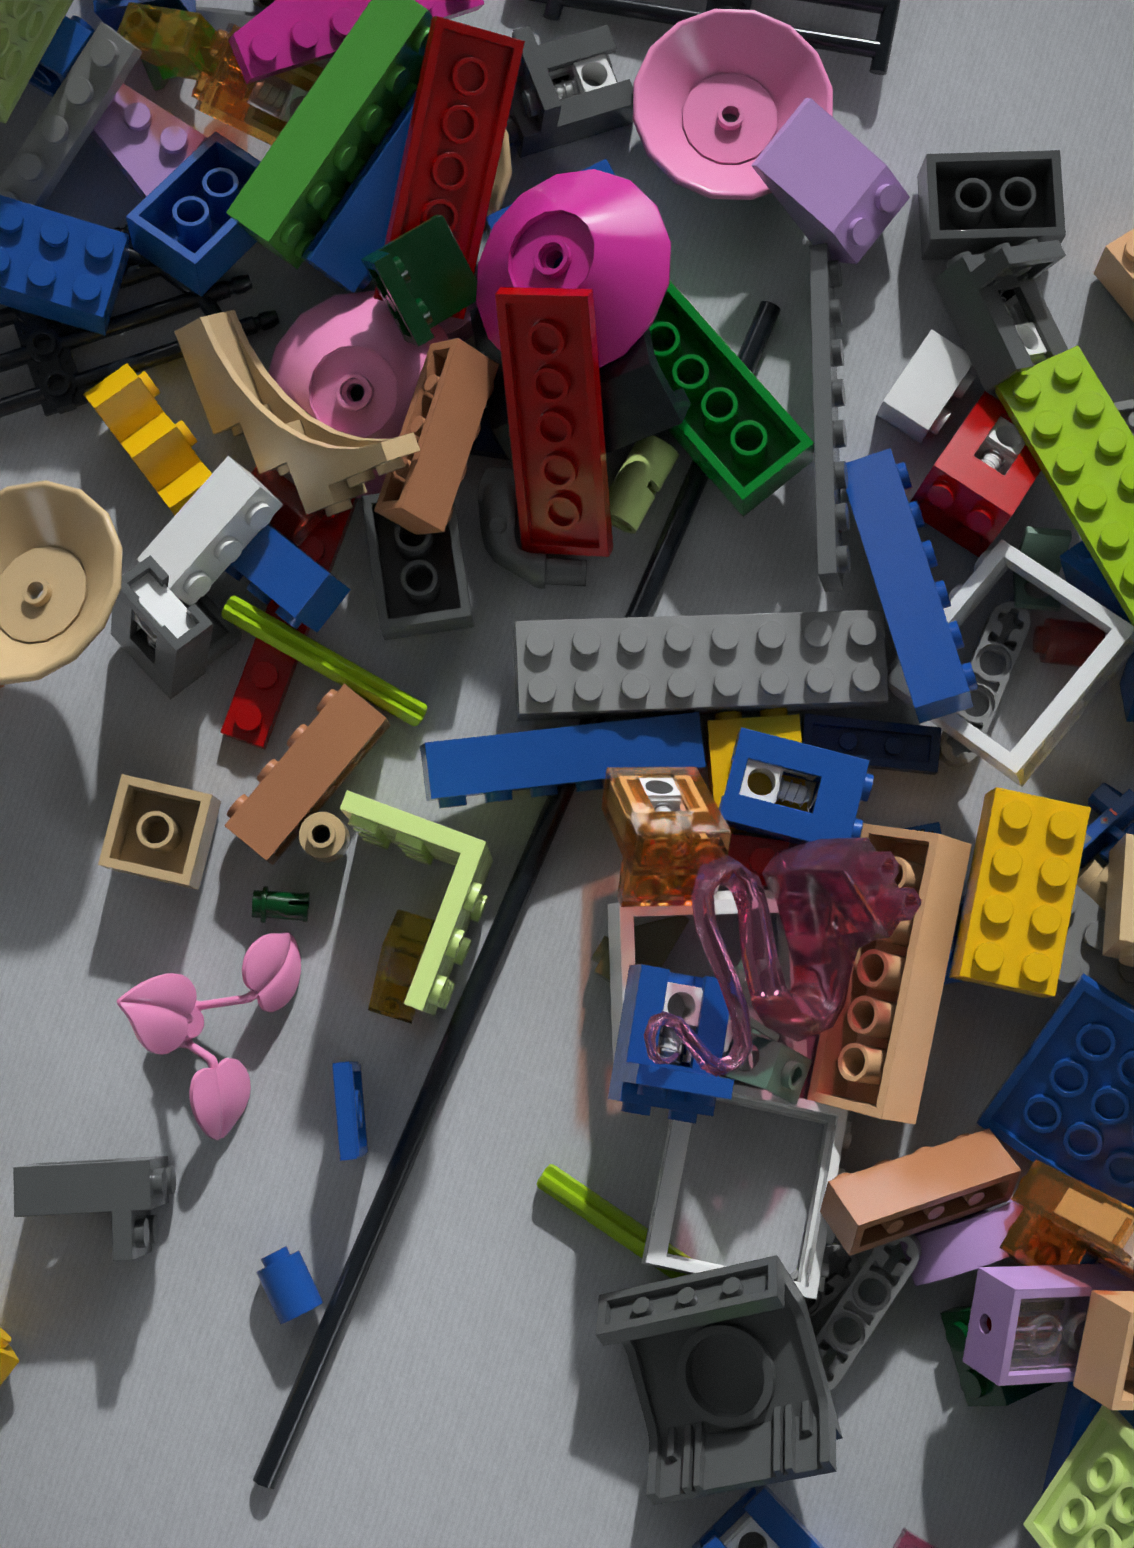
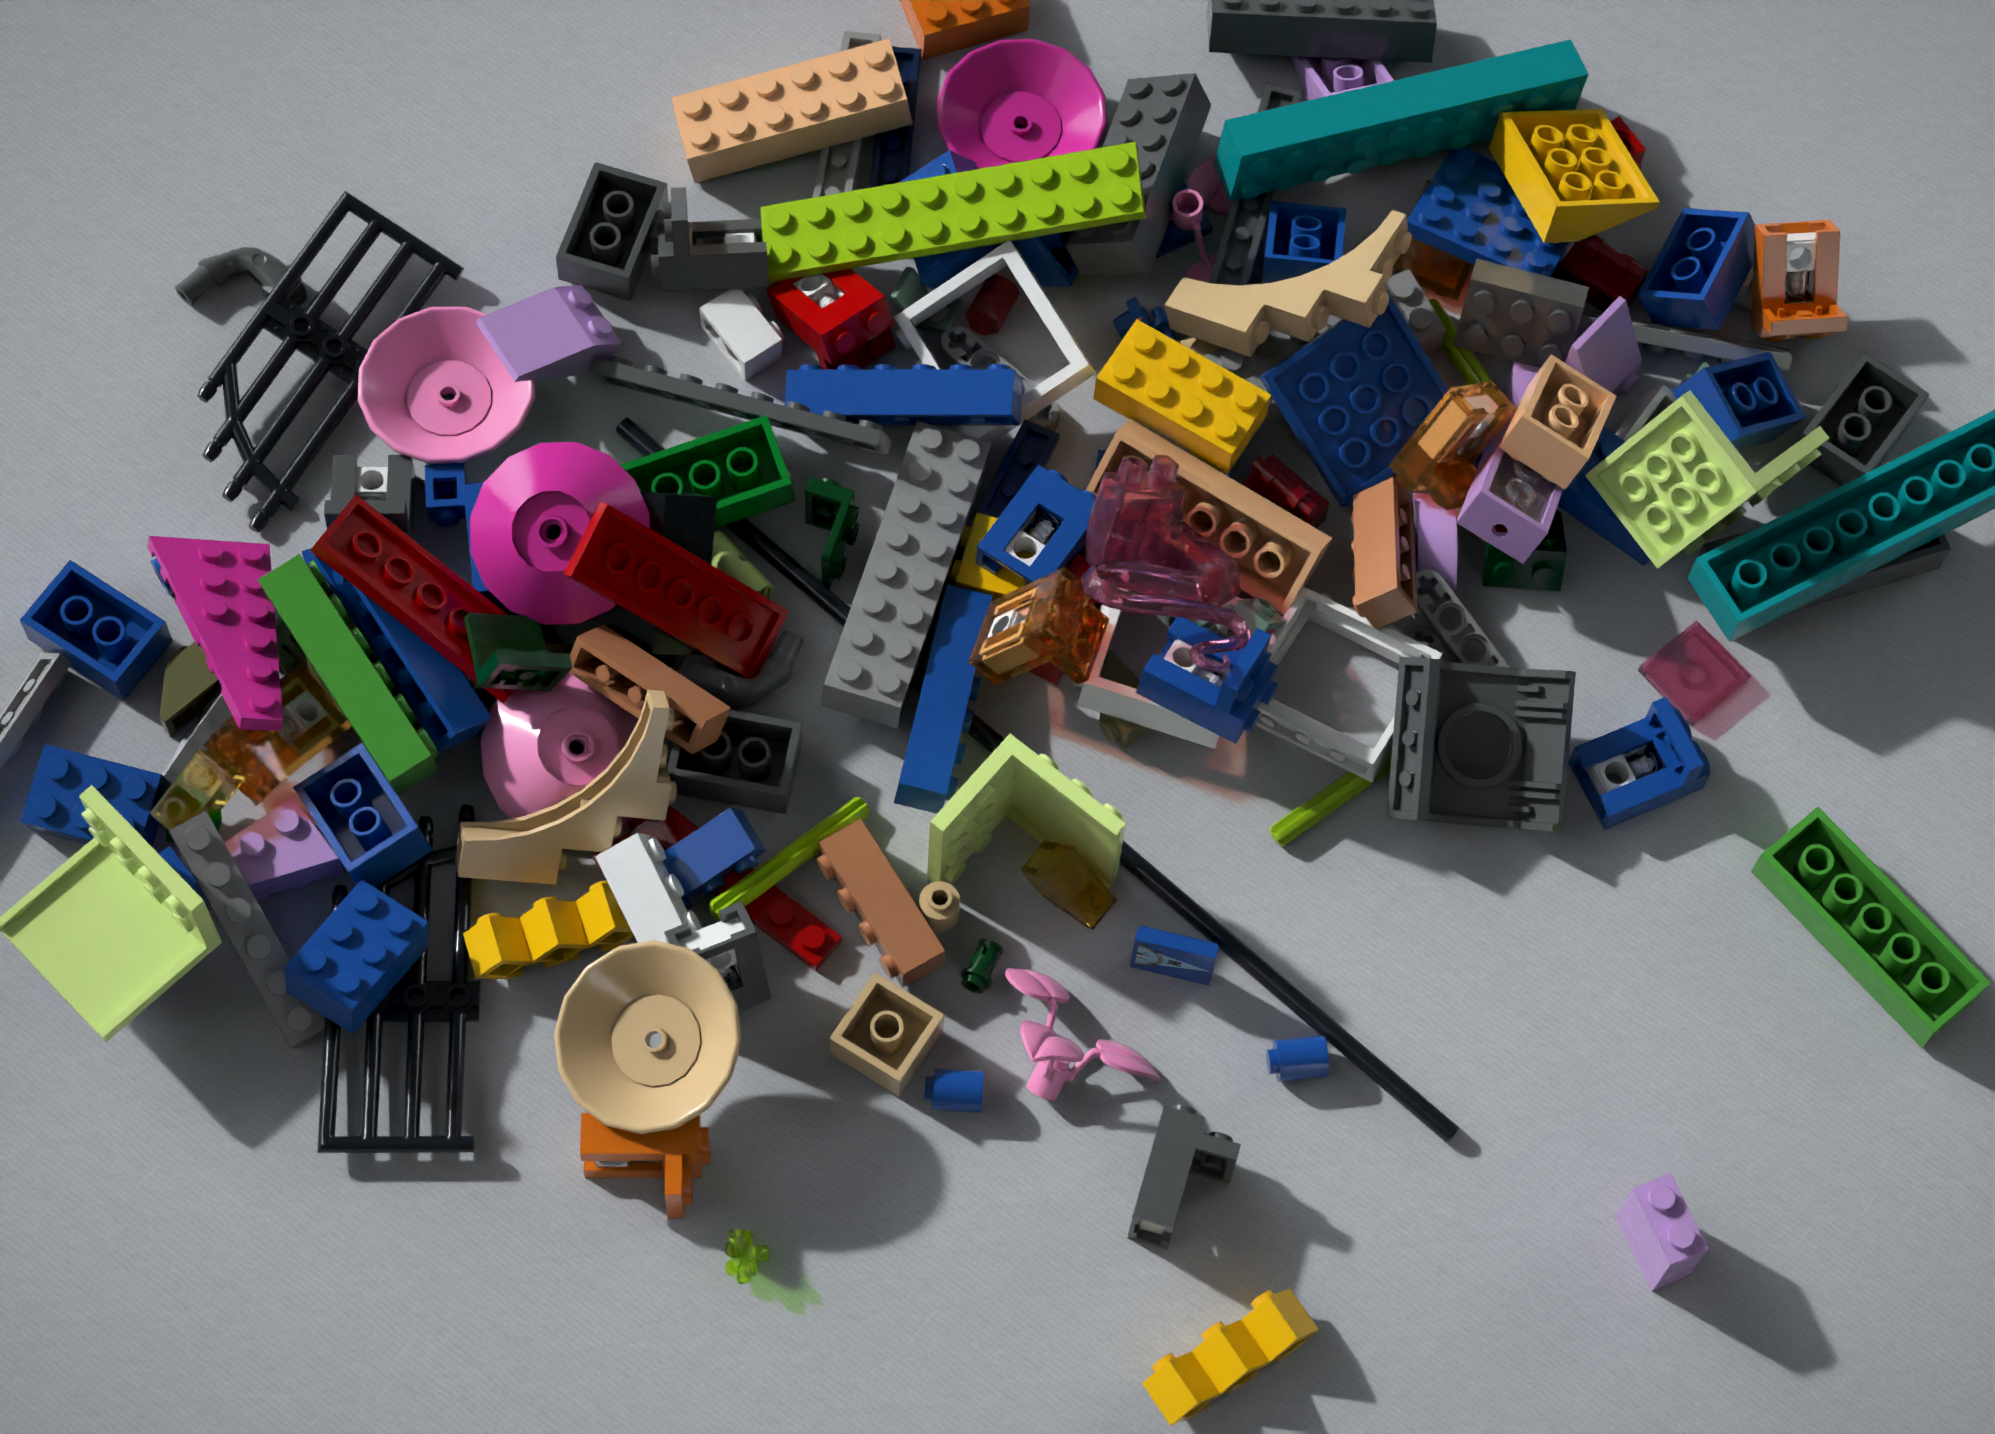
camera: 75 degrees left, 15 degrees down
(129, 926) = (955, 1090): none -> blue brick
(617, 145) = (445, 493): none -> blue brick
(725, 578) = (832, 509): none -> dark green bracket
(959, 1048) = (1287, 490): none -> dark red brick

